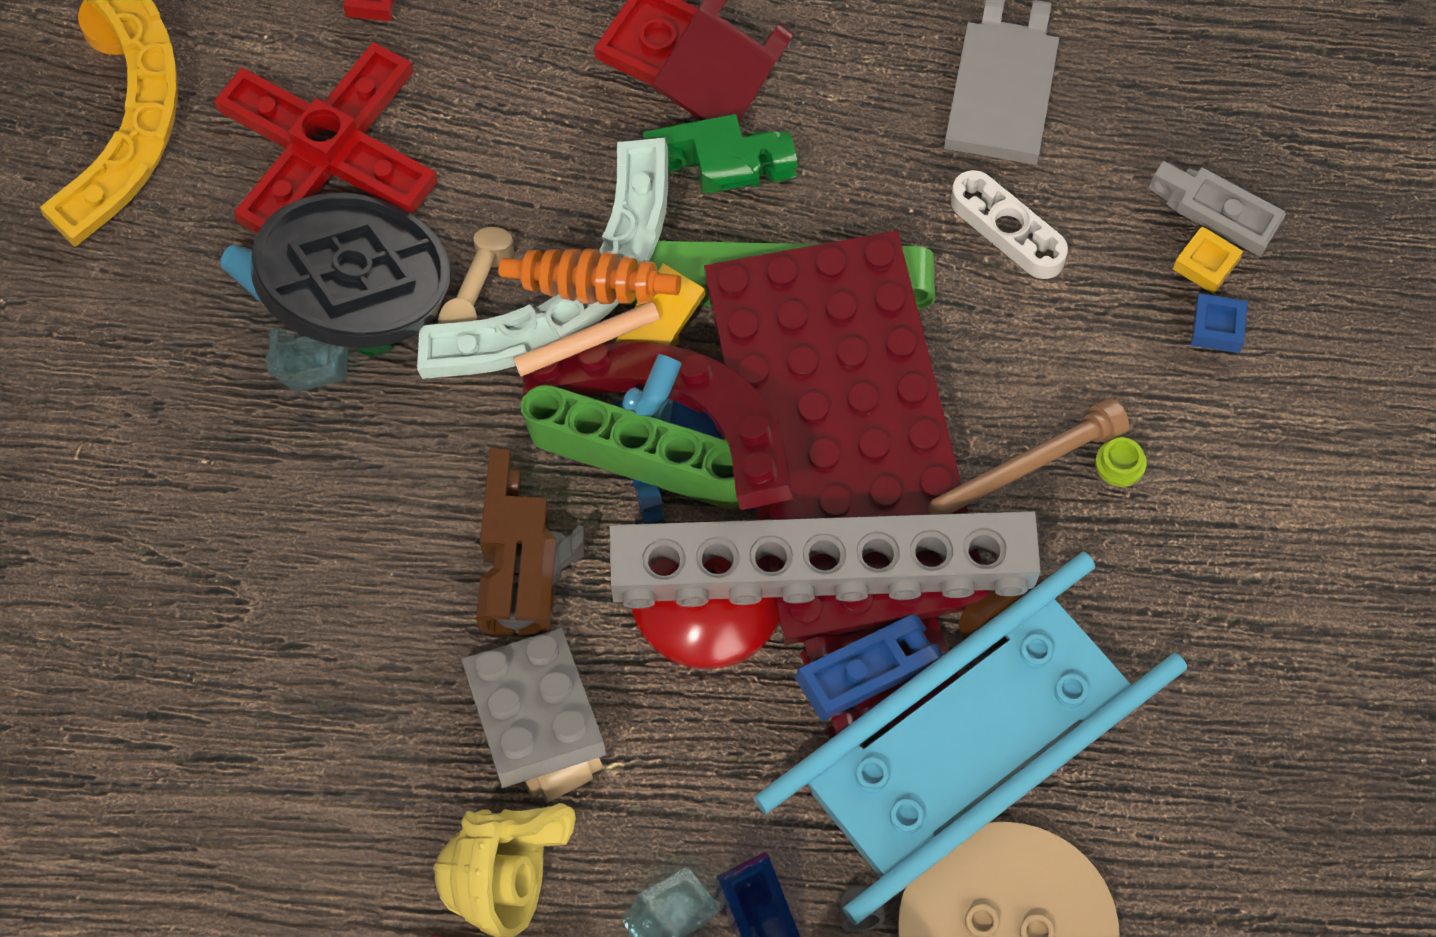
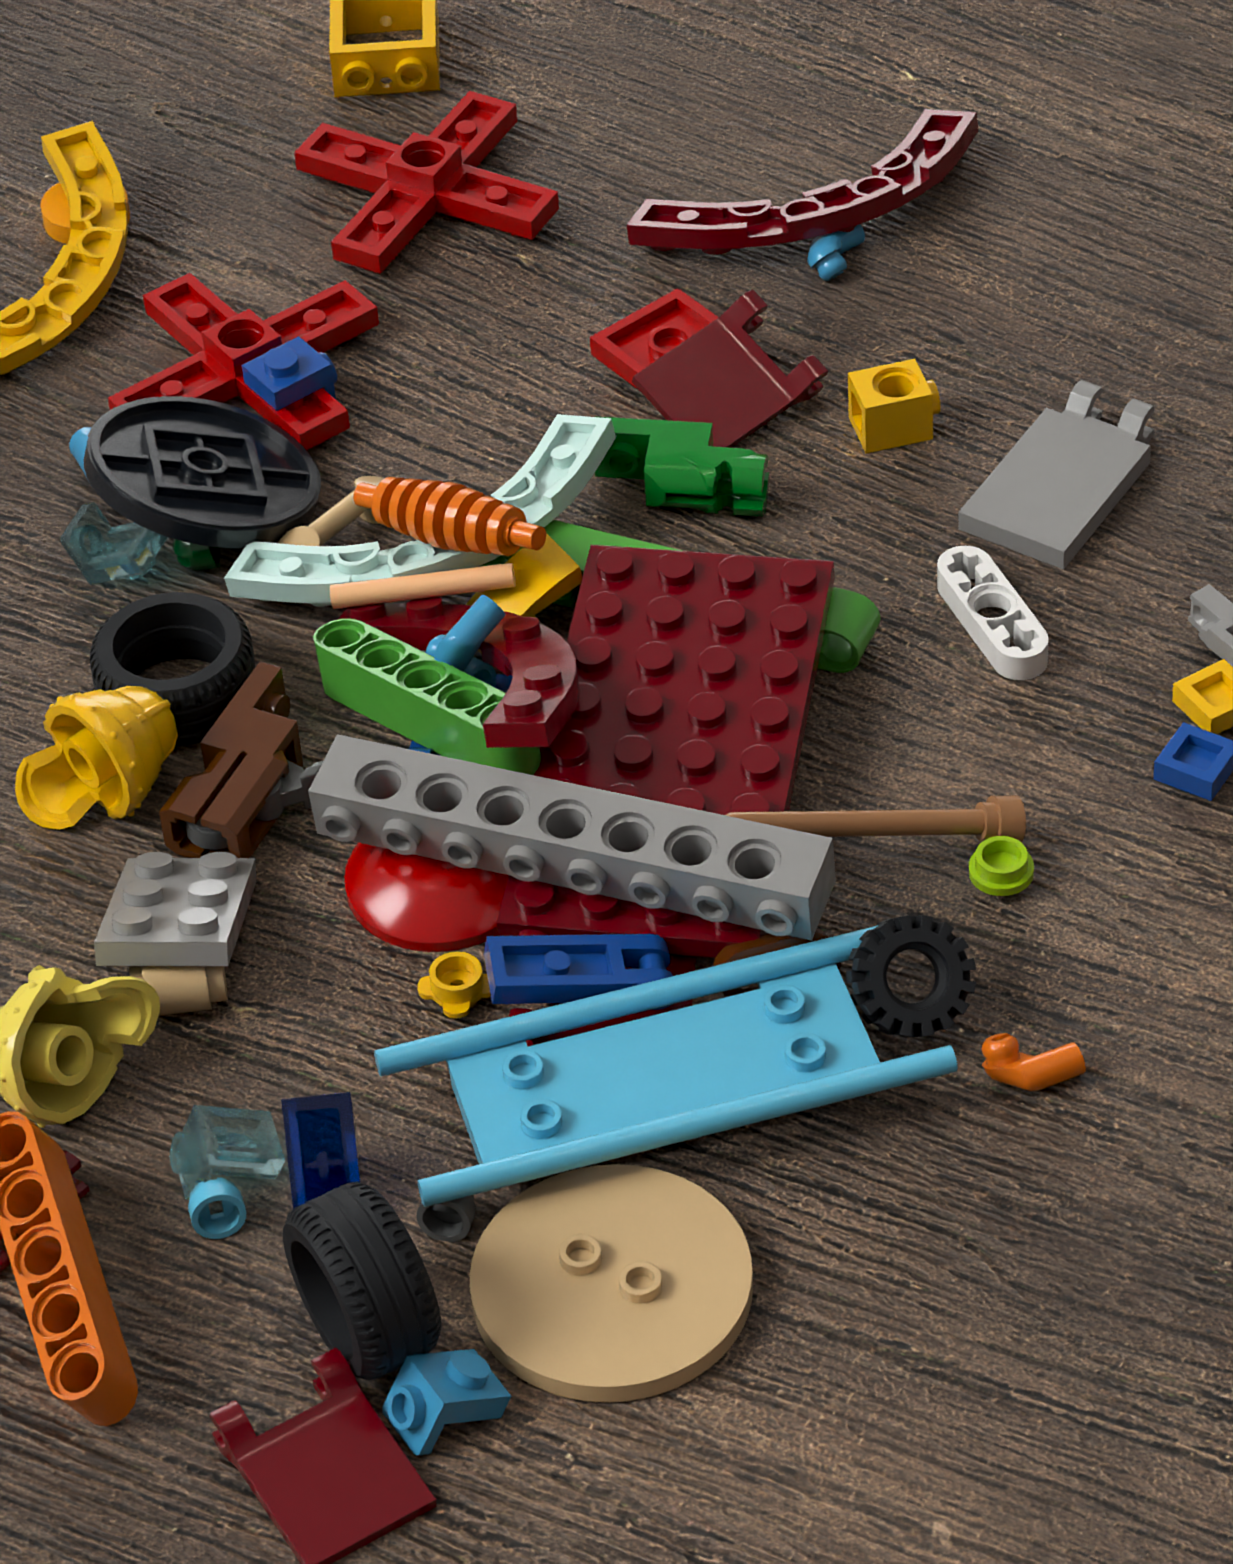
camera: 25 degrees right, 20 degrees down
(375, 151) = (289, 373): none -> blue bracket
(402, 573) = (103, 753): none -> yellow head
(413, 423) = (171, 629): none -> black tyre
(765, 683) = (455, 983): none -> yellow plate
(843, 64) = (892, 405): none -> yellow brick
(1140, 599) = (950, 967): none -> black tyre
(1219, 641) = (1030, 1072): none -> orange arm

